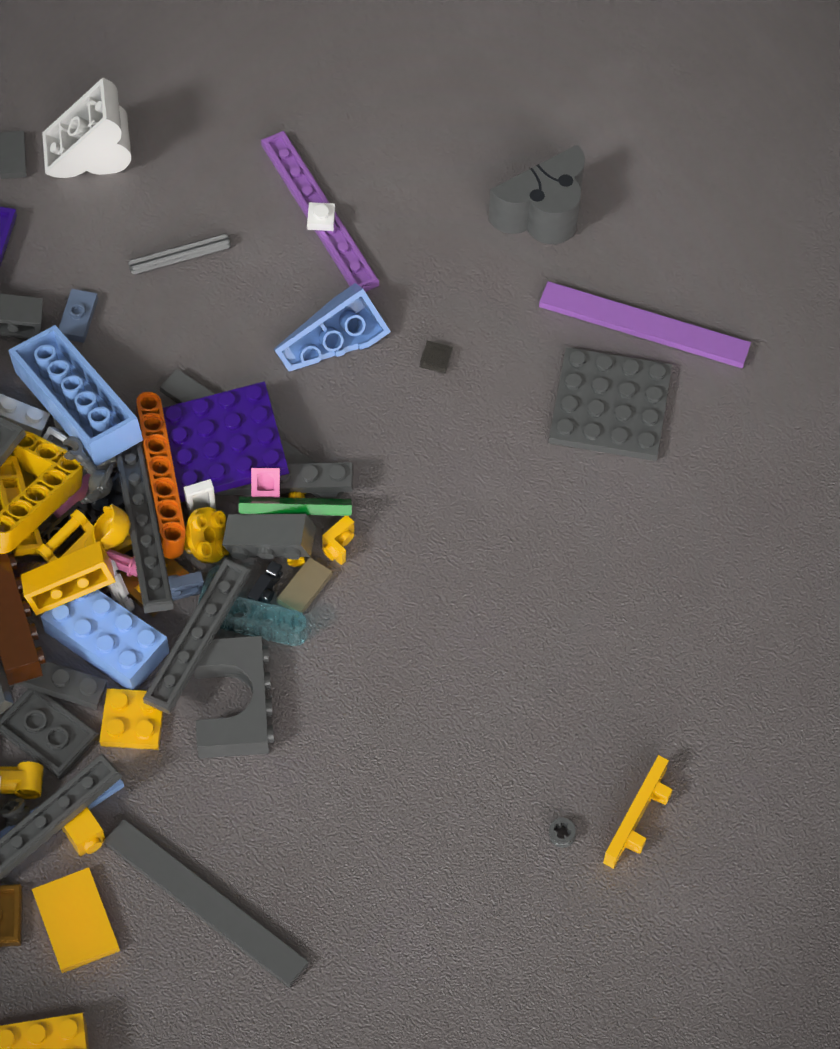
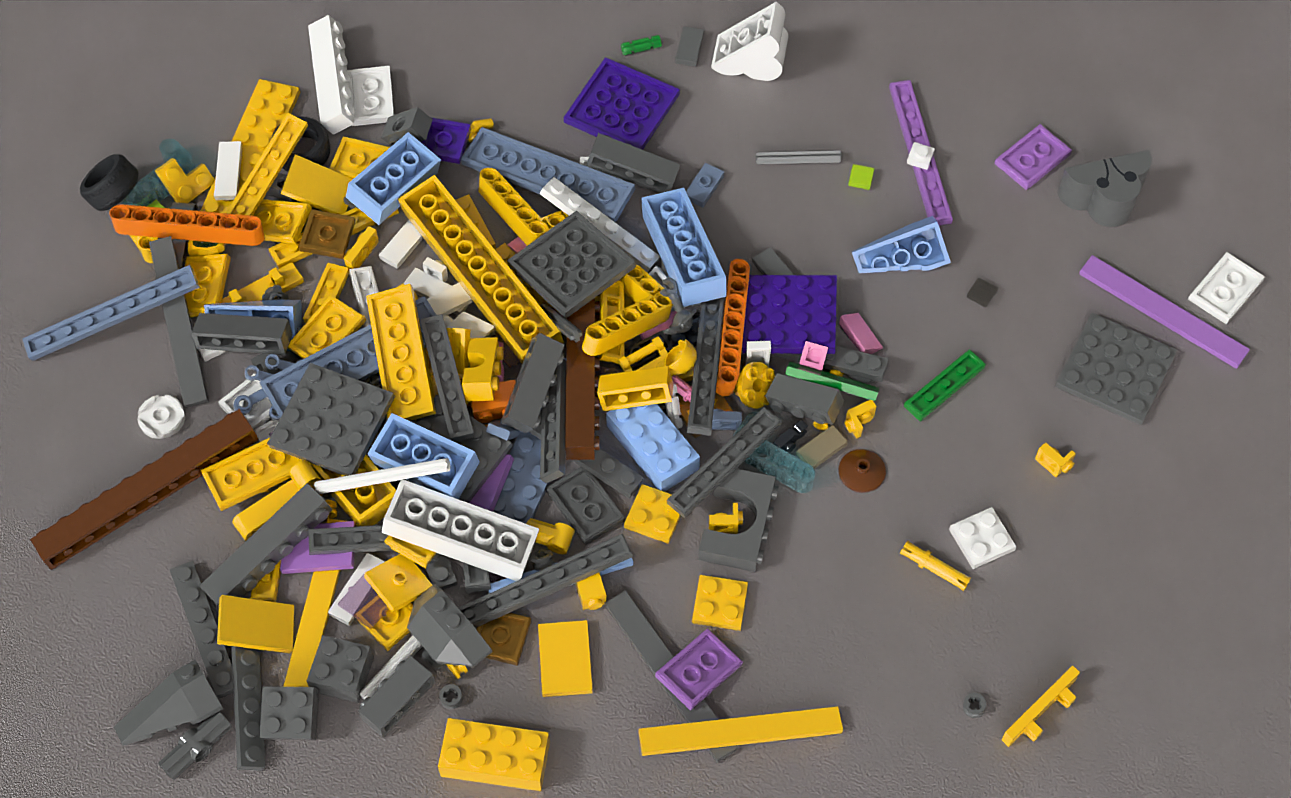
camera: 20 degrees right, 0 degrees up
(219, 706) = (726, 523): none -> yellow bracket
(236, 885) = (698, 669): none -> medium lavender tile
(238, 800) = (720, 602): none -> yellow plate
(259, 258) = (861, 176): none -> lime tile
(304, 943) = (740, 731): none -> yellow tile
(310, 442) = (859, 333): none -> bright pink slope
(358, 611) = (862, 479): none -> reddish brown dish
(424, 475) = (944, 385): none -> green tile
(449, 185) = (1033, 157): none -> medium lavender tile
(473, 686) = (935, 565): none -> yellow pin
(516, 639) = (982, 538): none -> white plate
(570, 529) = (1052, 460): none -> yellow bracket
(705, 279) = (1226, 288): none -> white tile

